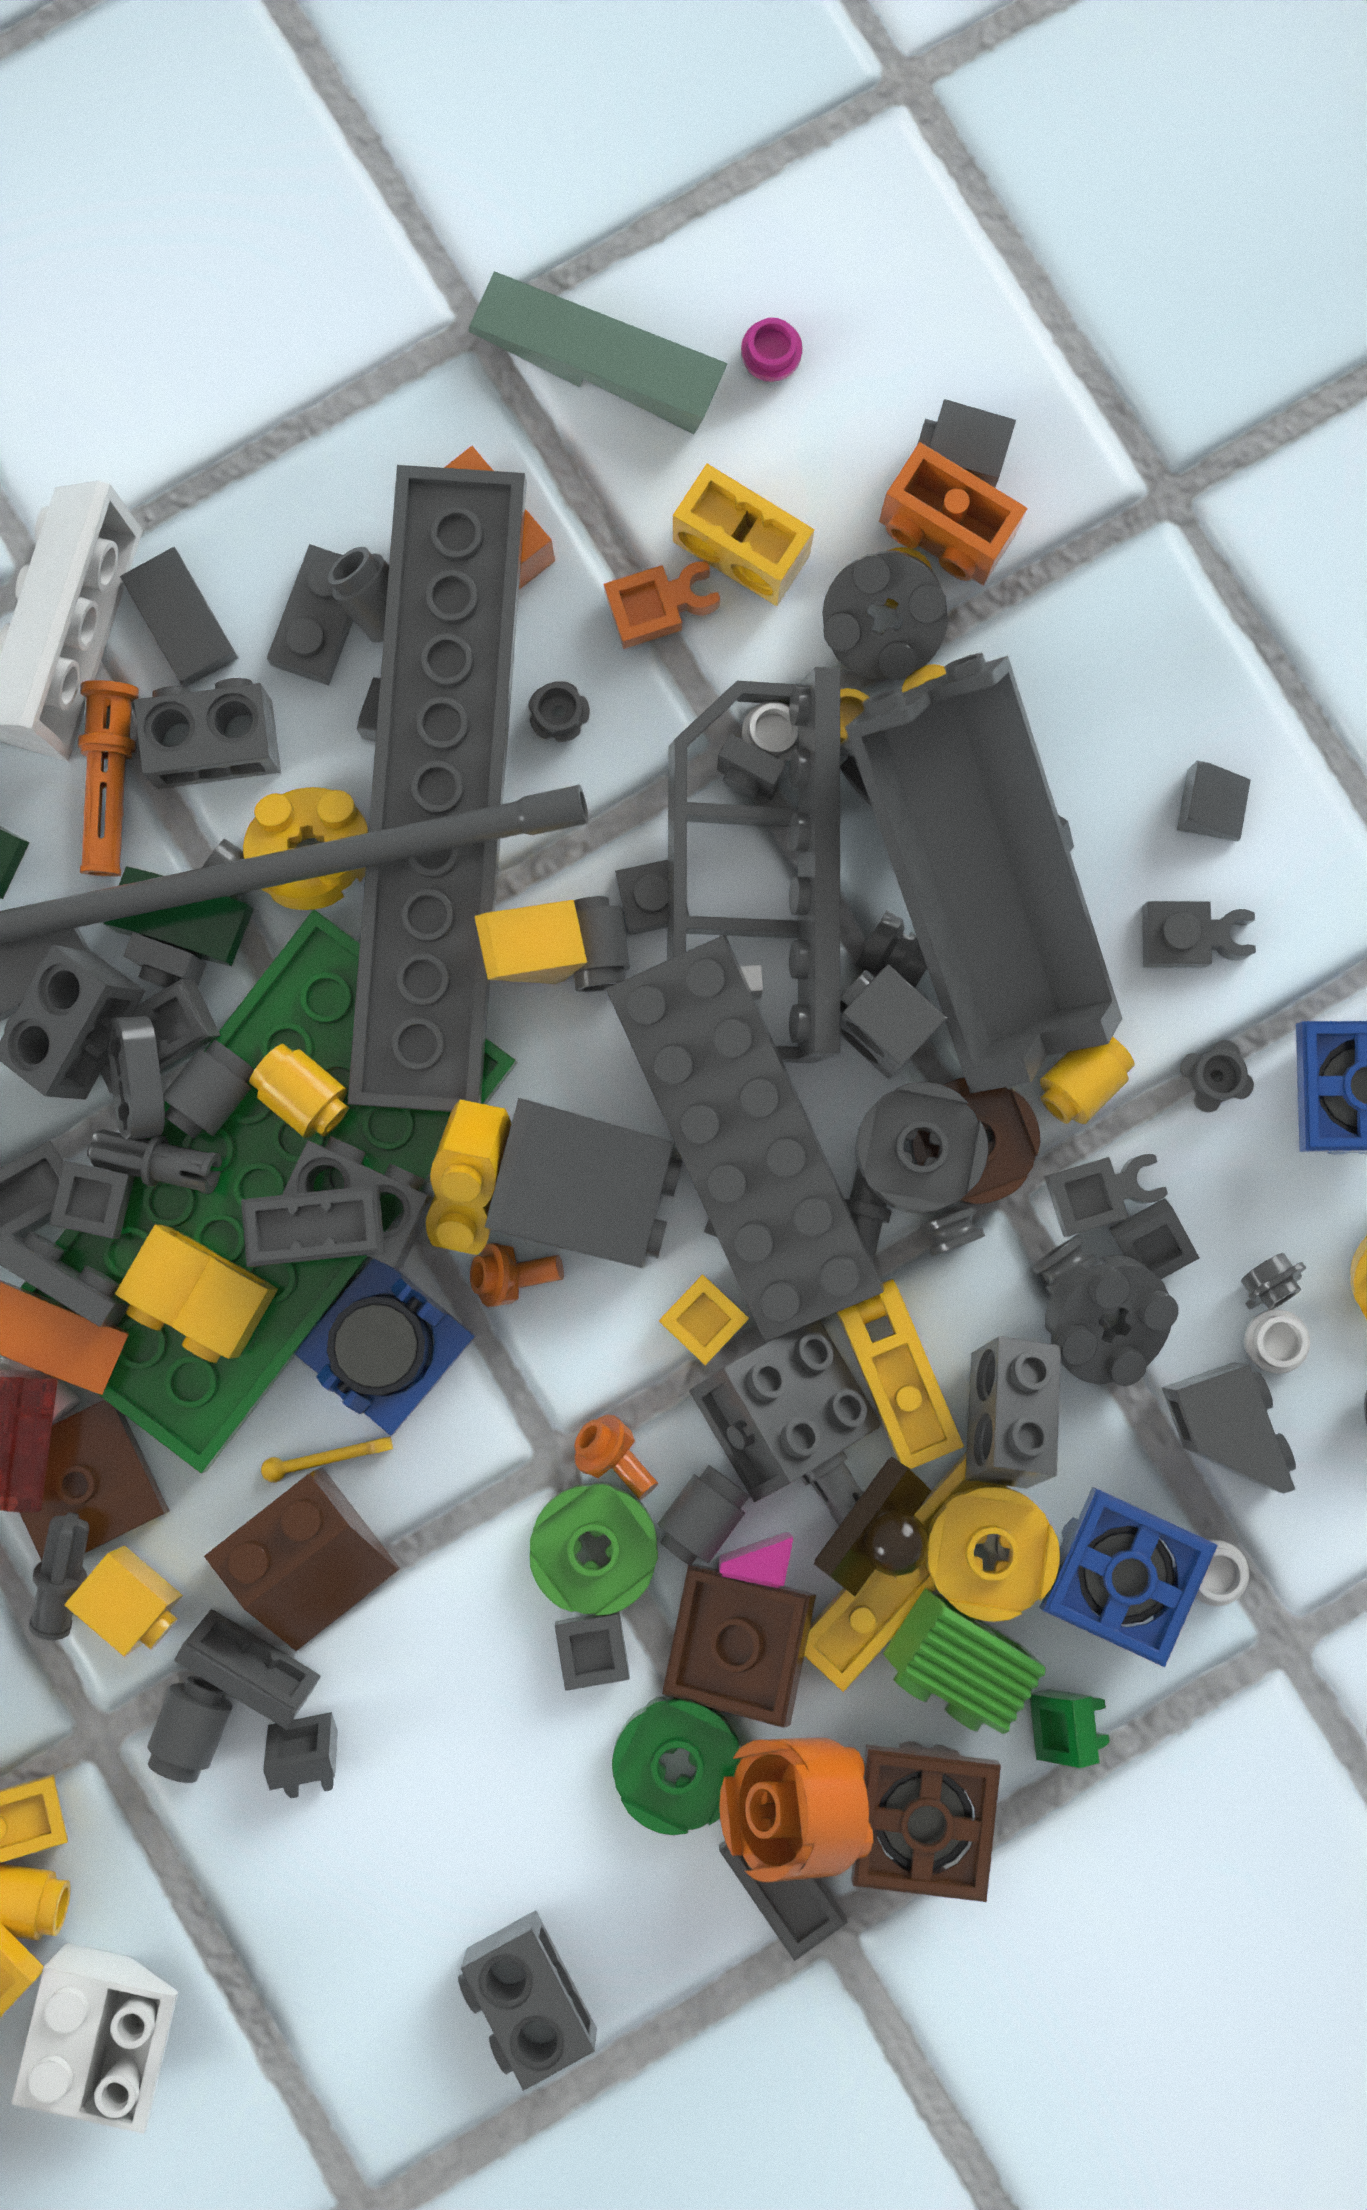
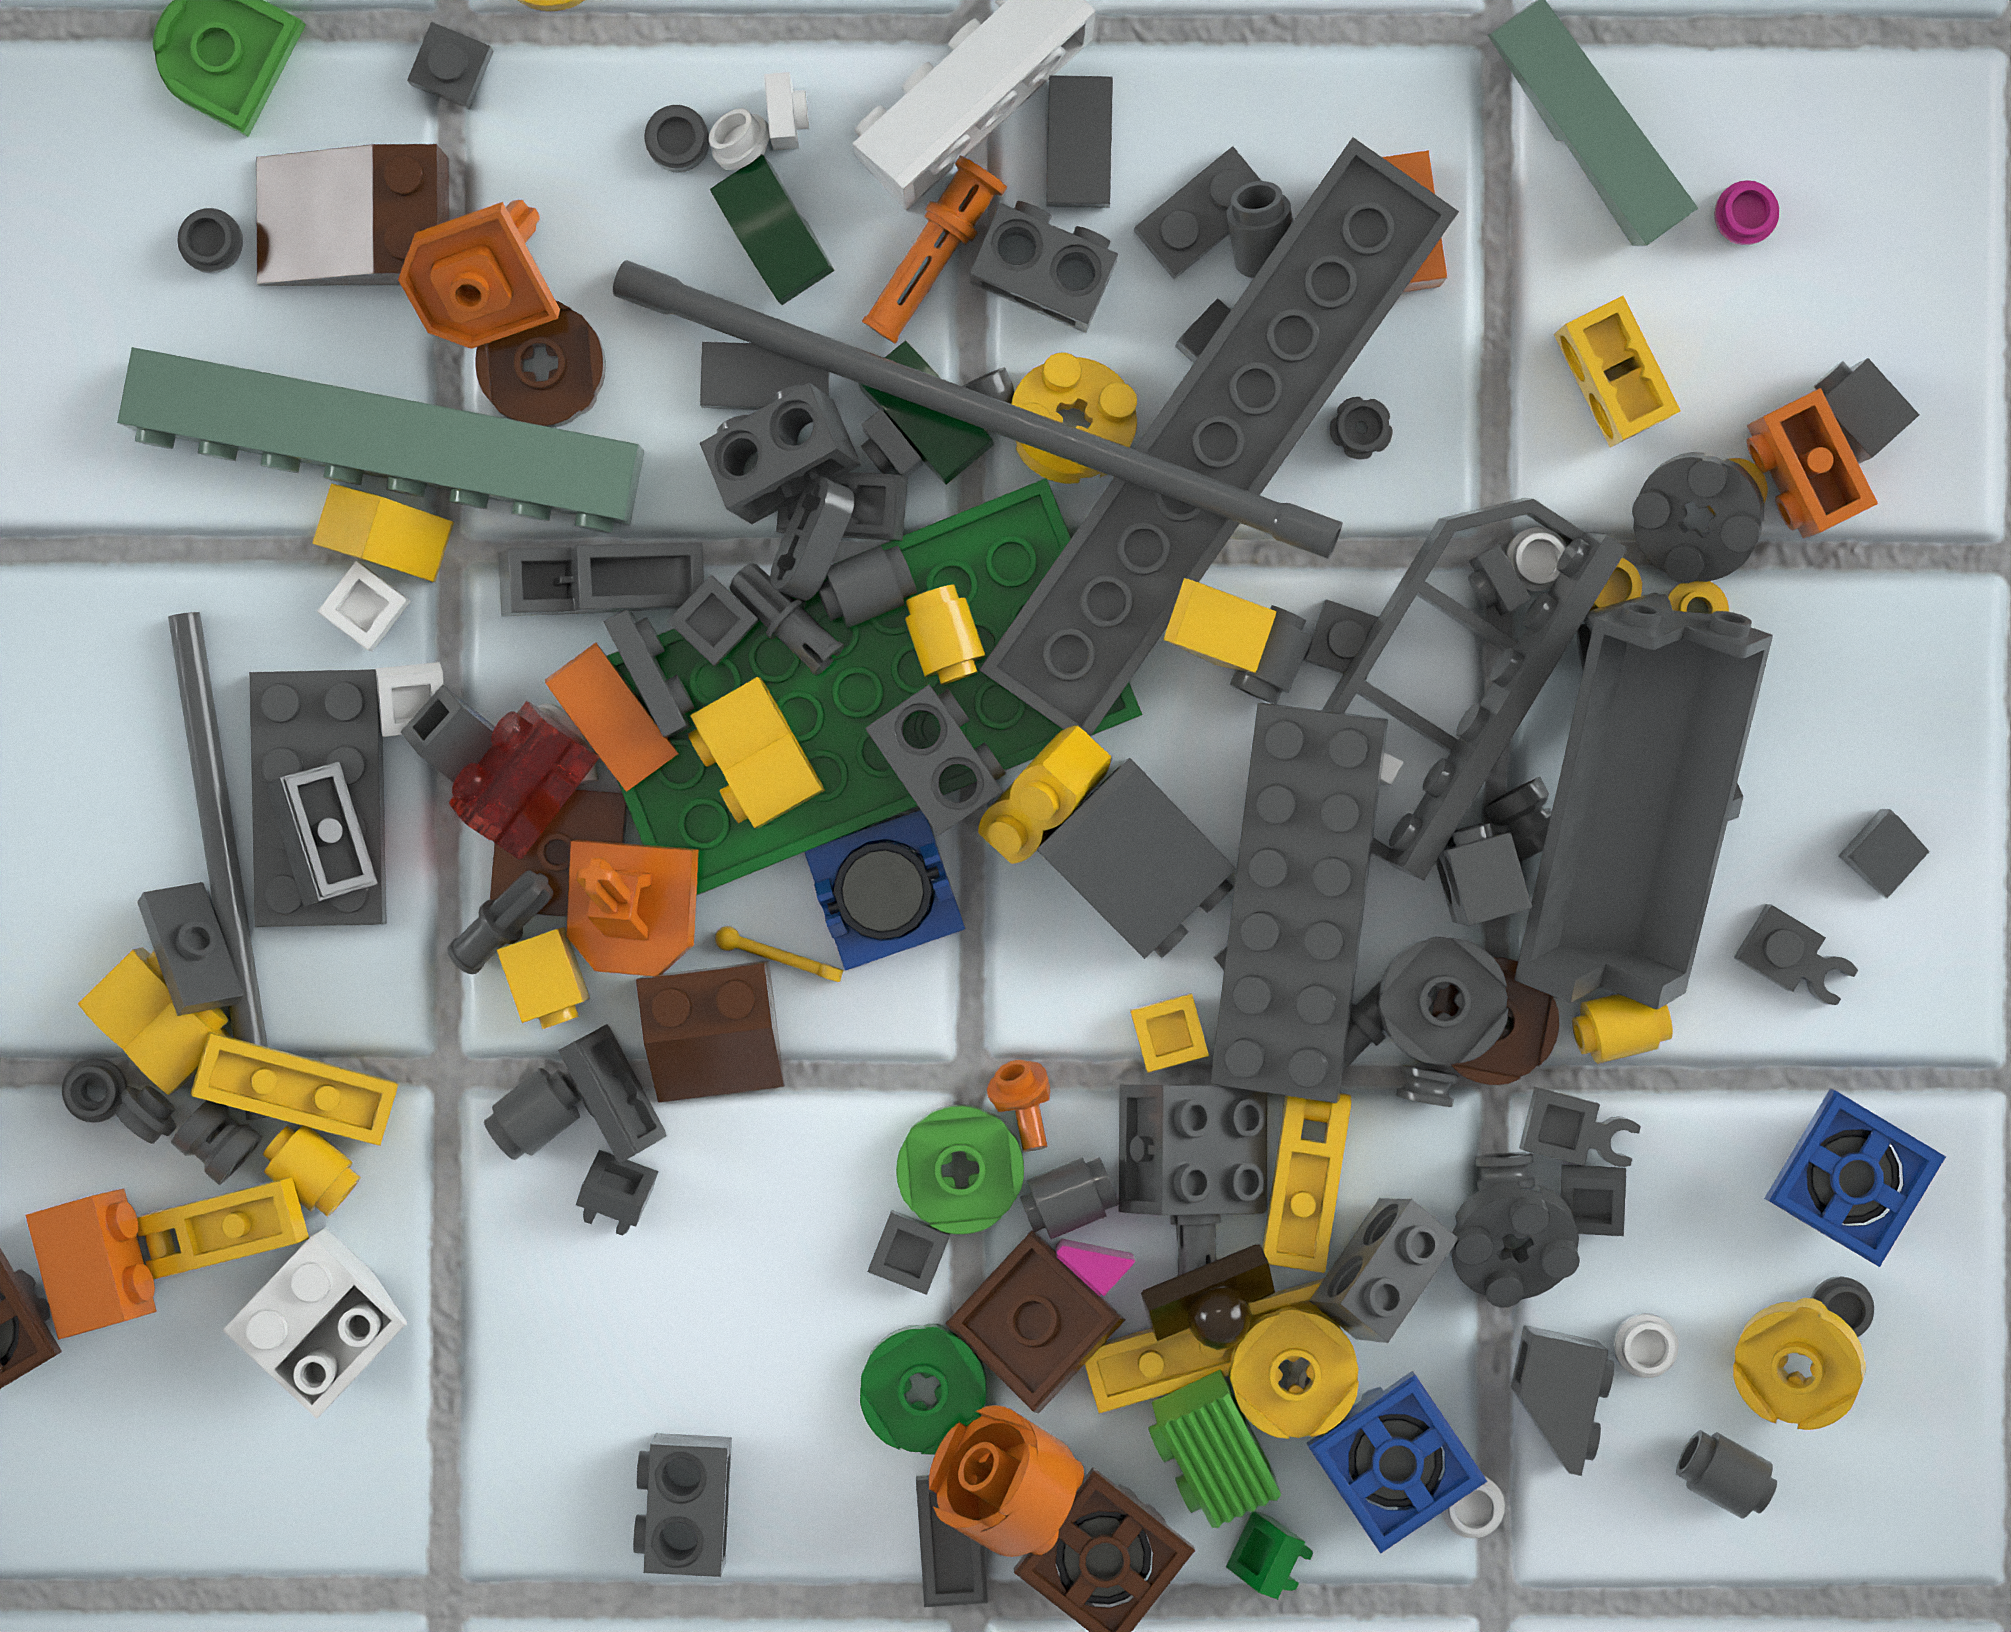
camera: 30 degrees right, 5 degrees up
(165, 1492) = (631, 905): none -> orange piece
(312, 1226) = (893, 762): dark grey plate -> none
(498, 1276) = (1022, 894): orange plate -> none
(650, 605) = (1498, 380): orange plate -> none
(1234, 1080) = (1750, 1103): dark grey plate -> none
(1273, 1282) = (1673, 1294): dark grey plate -> none

